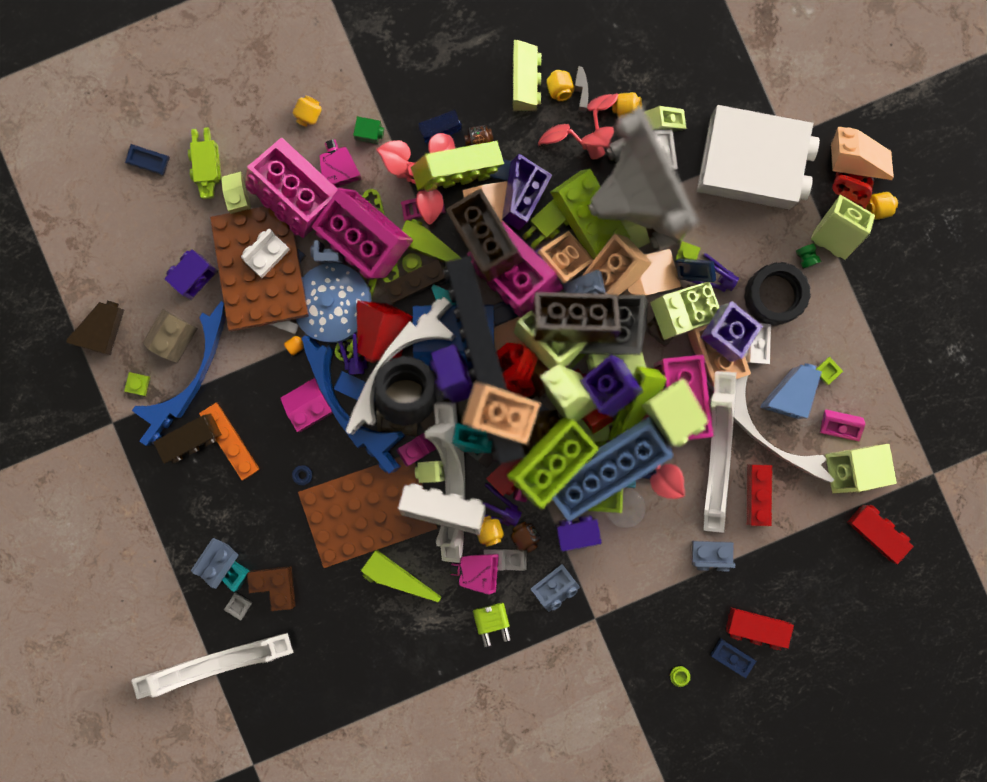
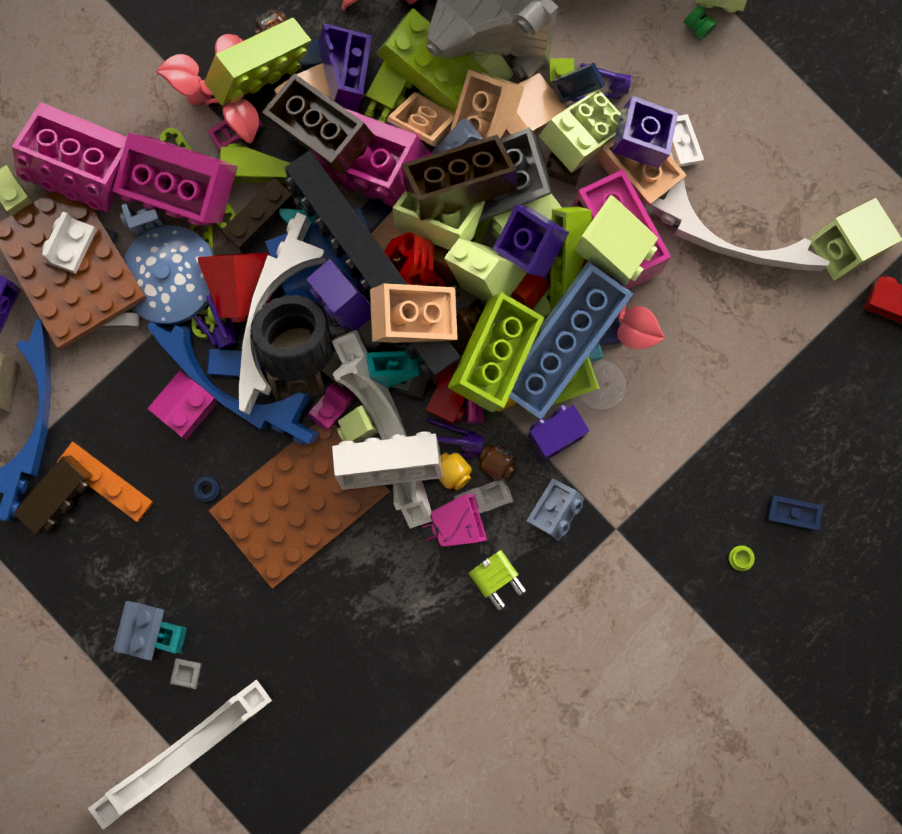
camera: 25 degrees left, 5 degrees down
(277, 582) = (223, 625): reddish brown brick -> none
(294, 345) = (142, 340): light orange piece -> none
(307, 111) = (59, 67): yellow head -> none
(338, 165) = (119, 113): dark pink torso -> none
(368, 130) = (139, 63): green brick -> none
(388, 573) = (353, 565): lime slope -> none
(411, 262) = (244, 194): lime plate -> none
(445, 123) = (227, 23): clear blue panel -> none
(712, 554) = (723, 402): sand blue bracket -> none
(720, 455) = (686, 277): white slope -> none
(759, 495) = (750, 311): red brick -> none
(759, 629) = (811, 467): red brick -> none
(794, 393) = (746, 181): medium blue slope -> none
(796, 279) = (691, 50): black tyre -> none
(830, 370) = (773, 143): lime plate -> none
(842, 425) = (814, 200): dark pink slope -> none

